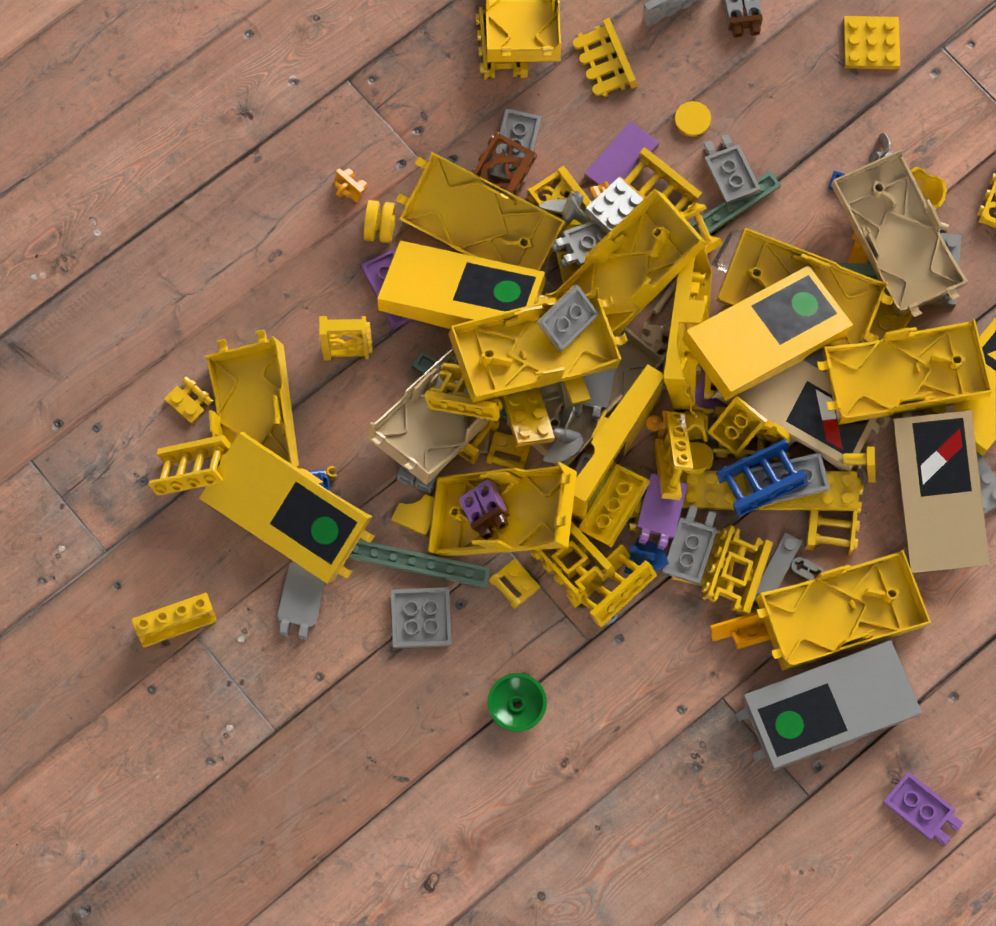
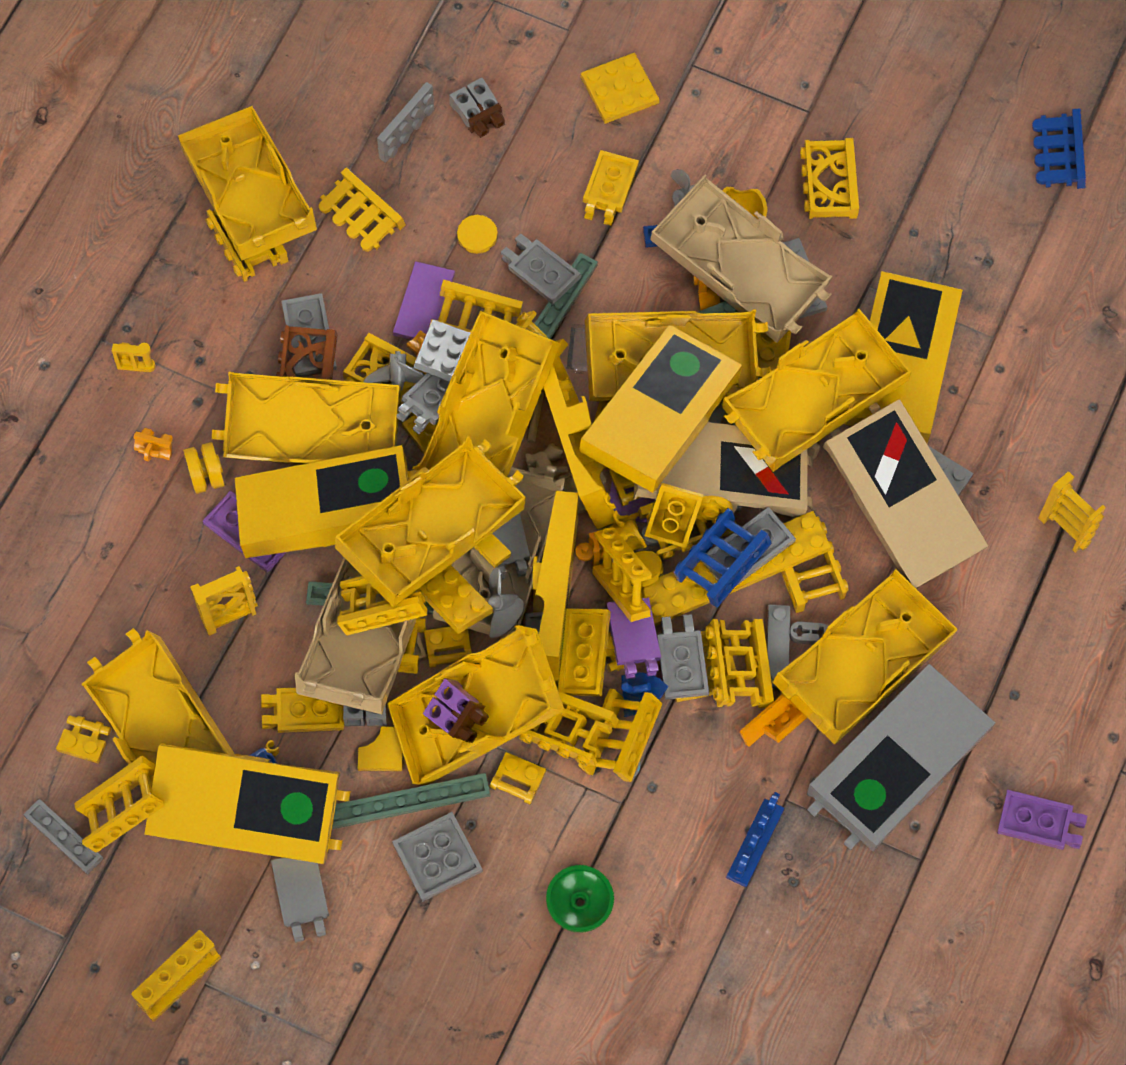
camera: 25 degrees left, 5 degrees down
(138, 470) = (62, 836): none -> light grey plate
(360, 104) = (126, 357): none -> yellow plate
(365, 455) = (300, 712): none -> yellow tile
(567, 318) = (451, 479): light grey tile -> none
(681, 720) = (756, 841): none -> blue fence
(822, 123) = (609, 185): none -> yellow tile
(863, 459) = (820, 494): yellow piece -> none

